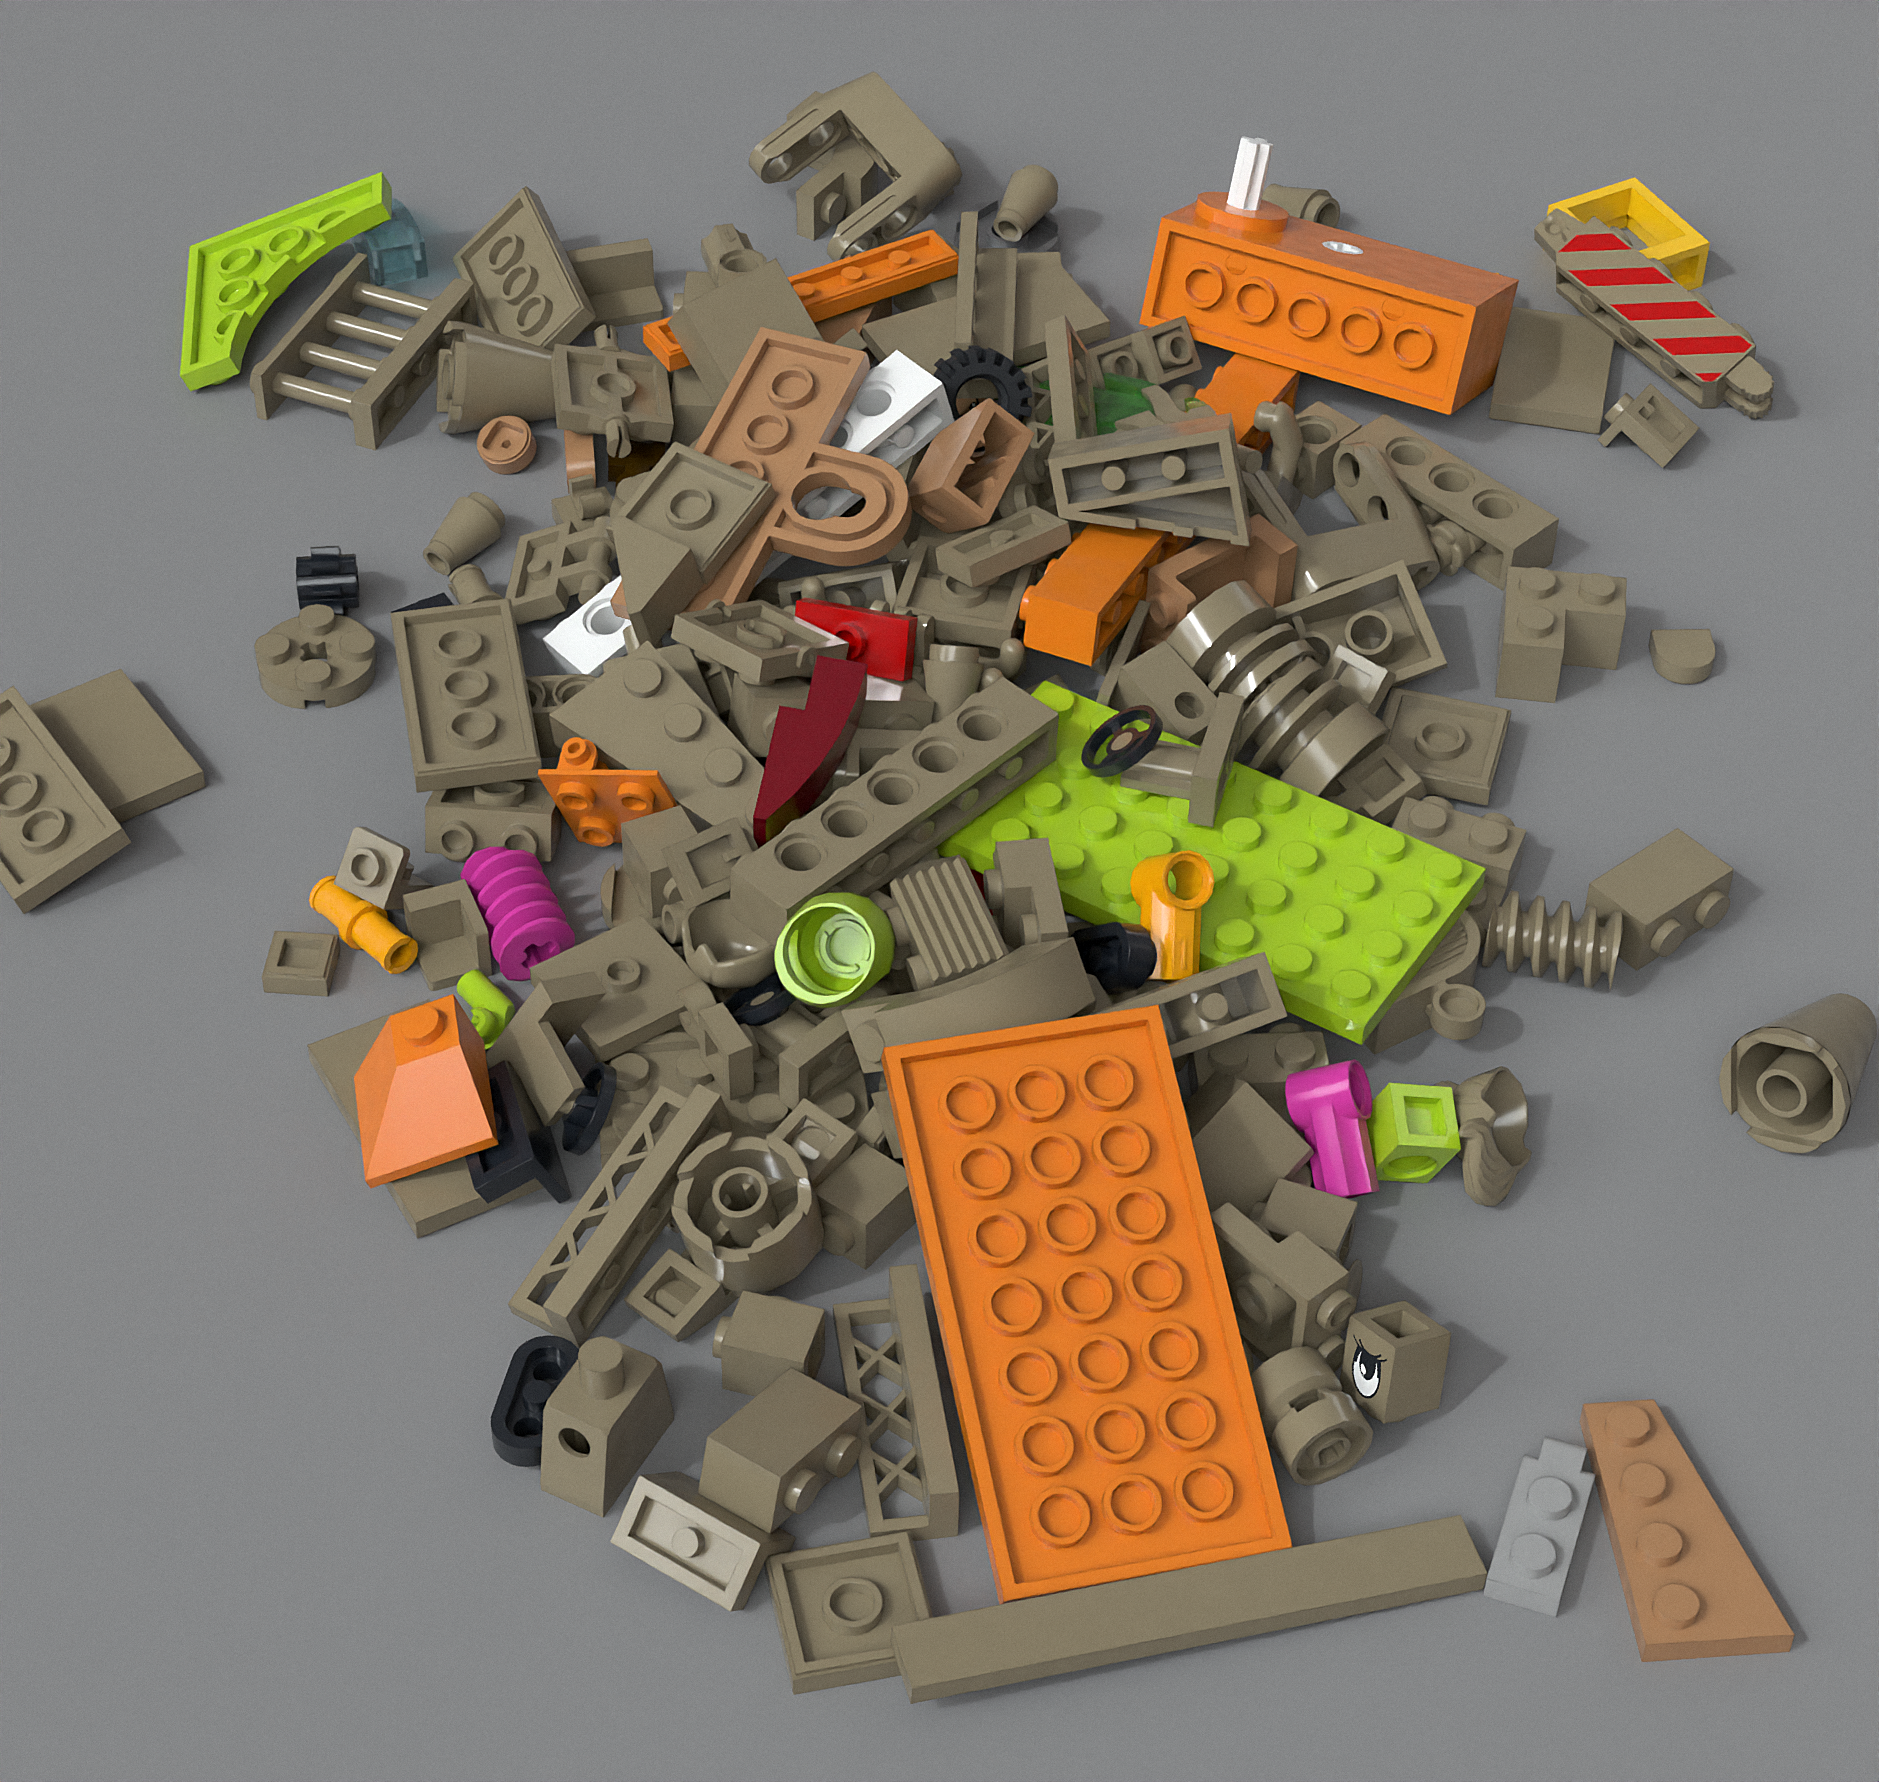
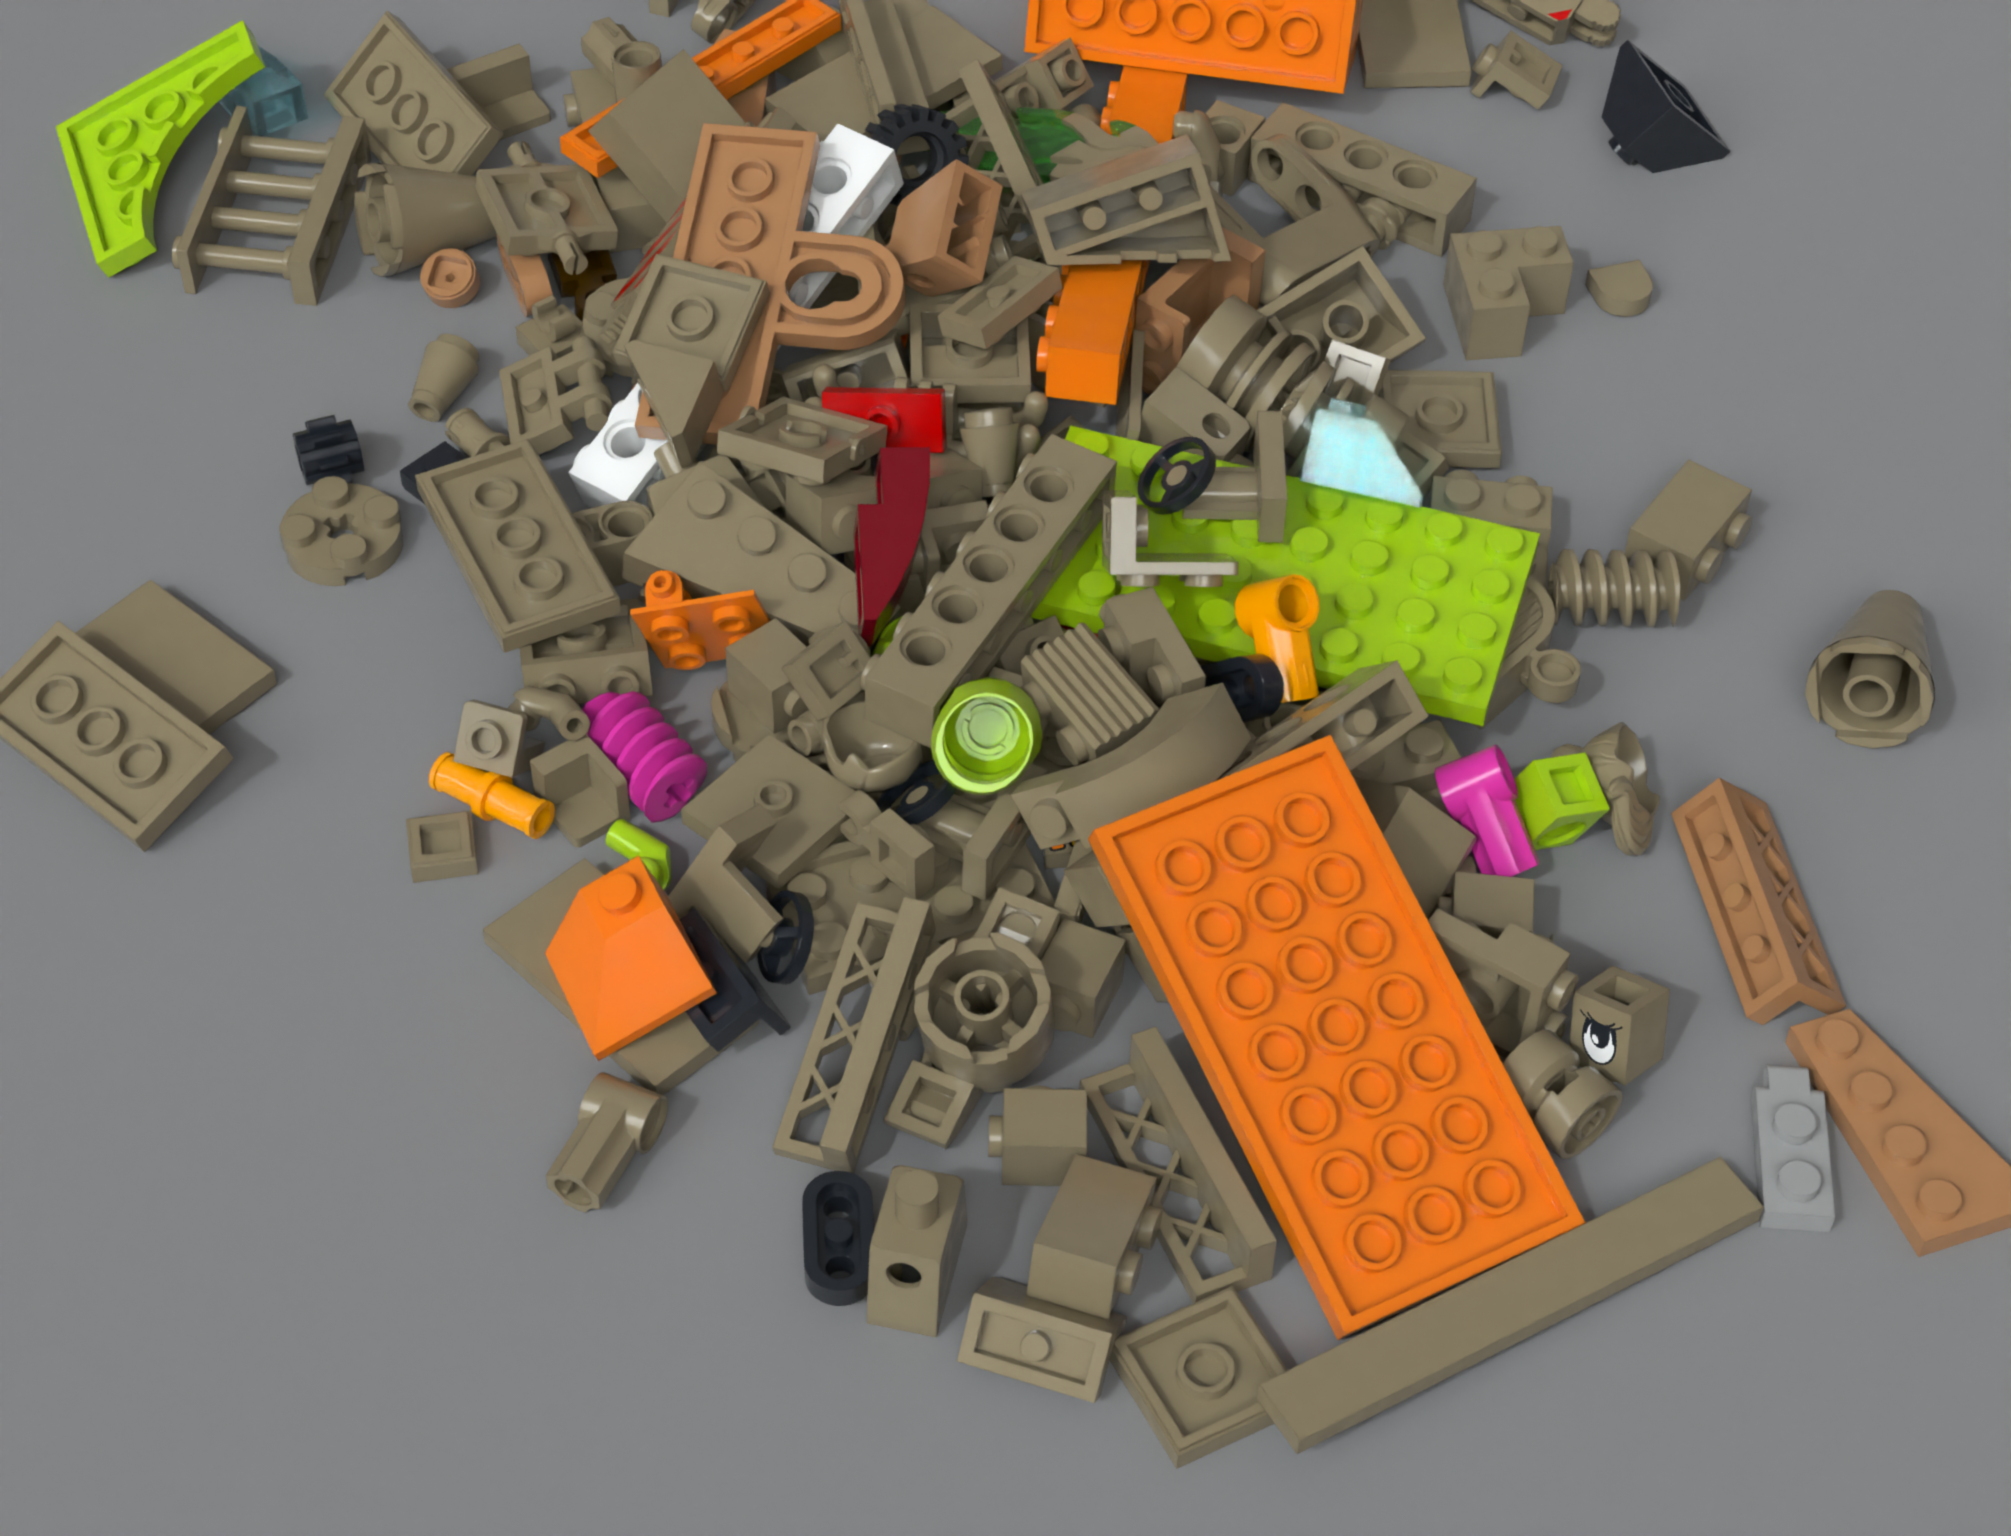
camera: 15 degrees left, 5 degrees up
(361, 1248) = (611, 1127): none -> dark tan piece
(445, 850) = (554, 706): none -> dark tan arm
(1041, 775) = (1126, 528): none -> bracket
(1311, 754) = (1355, 455): none -> clear light blue slope
(1584, 1268) = (1755, 903): none -> medium nougat fence
(1780, 492) = (1656, 116): none -> black slope

